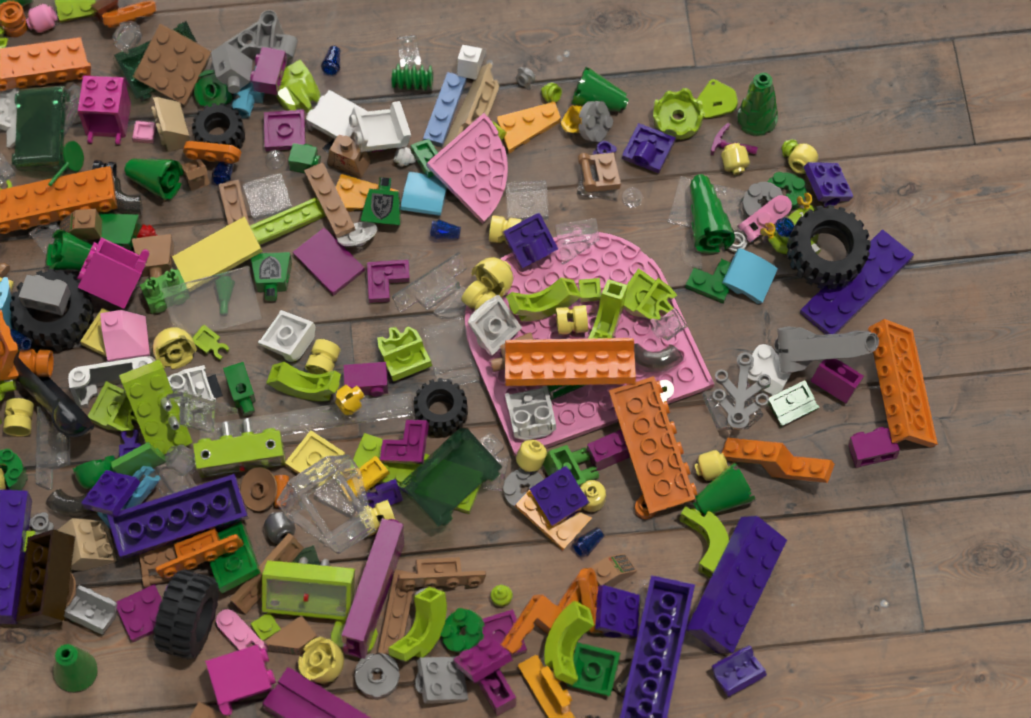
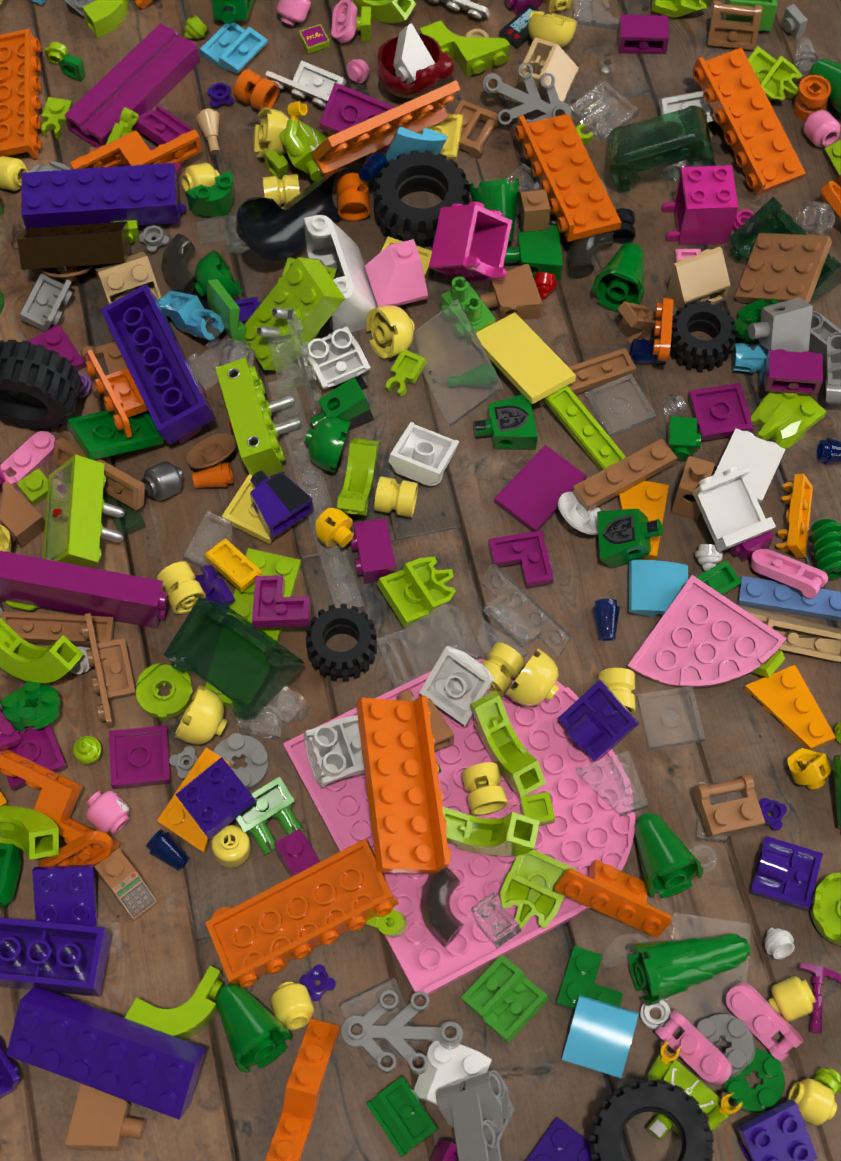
camera: 80 degrees right, 0 degrees up
(44, 294) = (422, 174): light grey brick -> none
(73, 159) = (632, 189): green piece -> none
(110, 493) = (176, 284): dark purple plate -> none
(271, 398) = (327, 442): none -> green cylinder
(295, 499) = (214, 497): clear windscreen -> none
(318, 439) = (278, 502): none -> dark purple torso
(380, 94) = (797, 516): none -> light orange plate
(426, 106) = (789, 571): none -> bright pink plate
(460, 549) = (163, 706): none -> lime plate
(487, 510) = (202, 718): none -> light yellow cylinder
(512, 558) = (139, 757): none -> magenta plate
(519, 532) = (178, 761): none -> light grey plate
(531, 455) = (277, 758): light yellow head -> none
(555, 580) = (107, 812): none -> bright pink head
(595, 121) = (809, 804): light grey plate -> none
(629, 218) = (664, 858): none -> green cone
(657, 249) = (615, 896): none -> orange bracket
(694, 444) = (326, 983): none -> dark purple plate
(695, 161) = (779, 943): none -> white plate
(717, 332) = (504, 998): none -> bright green slope
(743, 179) = (762, 1019): none -> bright pink plate
(782, 595) = (101, 1122): none -> medium nougat torso
(784, 226) = (685, 1075): clear blue plate -> none

